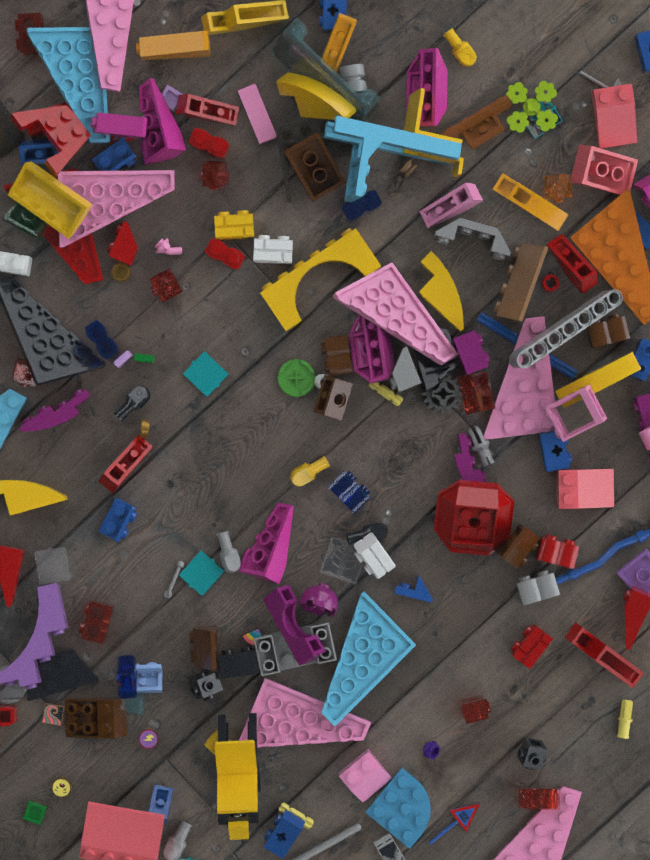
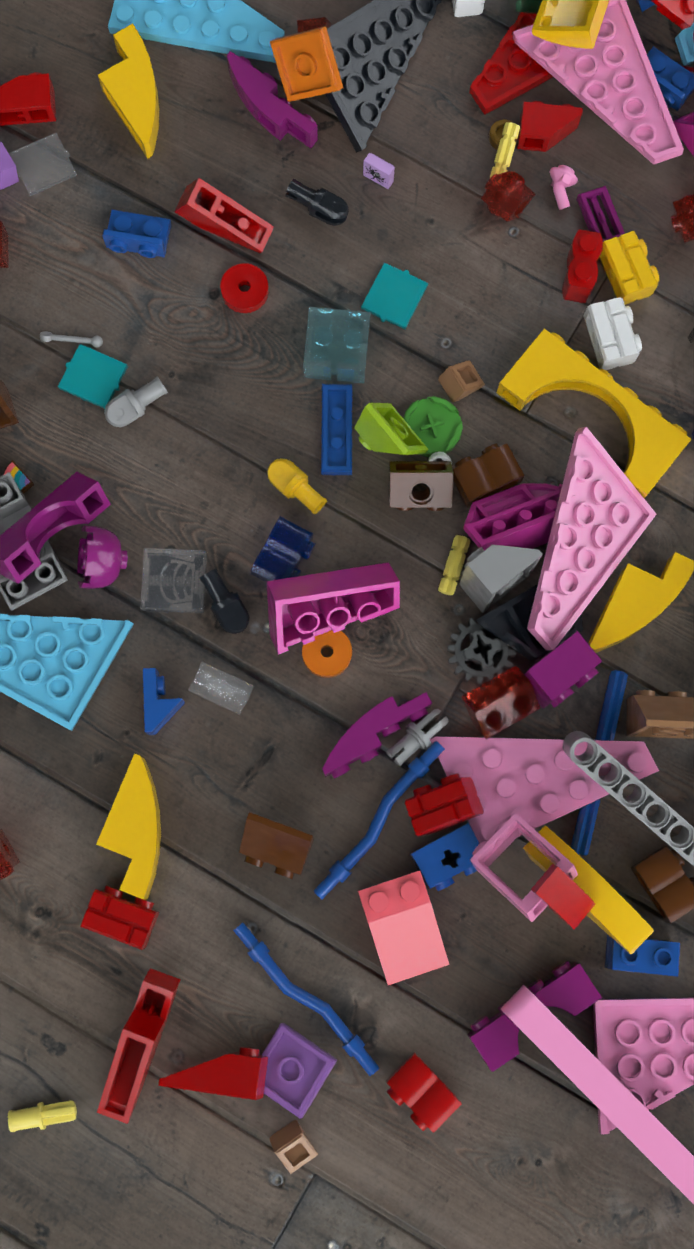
camera: 75 degrees right, 10 degrees down
(50, 385) = (306, 64): none -> orange tile
(105, 345) = (398, 129): clear blue brick -> none
(135, 277) = (505, 148): none -> light yellow axle
(144, 358) = (389, 199): green tile -> none
(144, 428) = (285, 229): pearl gold tile -> none
(173, 473) = (242, 275): none -> red piece
(191, 230) = (609, 207): none -> magenta tile
(230, 421) = (336, 344): none -> clear light blue piece
(269, 553) = (147, 464): dark pink wedge -> none
(272, 350) = (460, 380): none -> medium nougat slope
(280, 435) = (336, 429): none -> blue tile
(298, 405) = (386, 431): none -> lime slope
(374, 556) = (192, 619): white brick -> none
(387, 473) = (328, 601): none -> dark pink wedge
(414, 474) = (330, 666): none -> orange piece
(418, 551) = (221, 688): none -> clear hips
(473, 500) = (331, 764): red piece -> none
(483, 623) = (135, 828): none -> yellow slope
(526, 445) = (444, 805): none -> red brick
(537, 588) = (217, 898): light grey brick -> none
(542, 513) = (341, 870): none -> blue bar
(557, 552) = (286, 913): red brick -> none
(600, 398) = (563, 896): none -> red slope

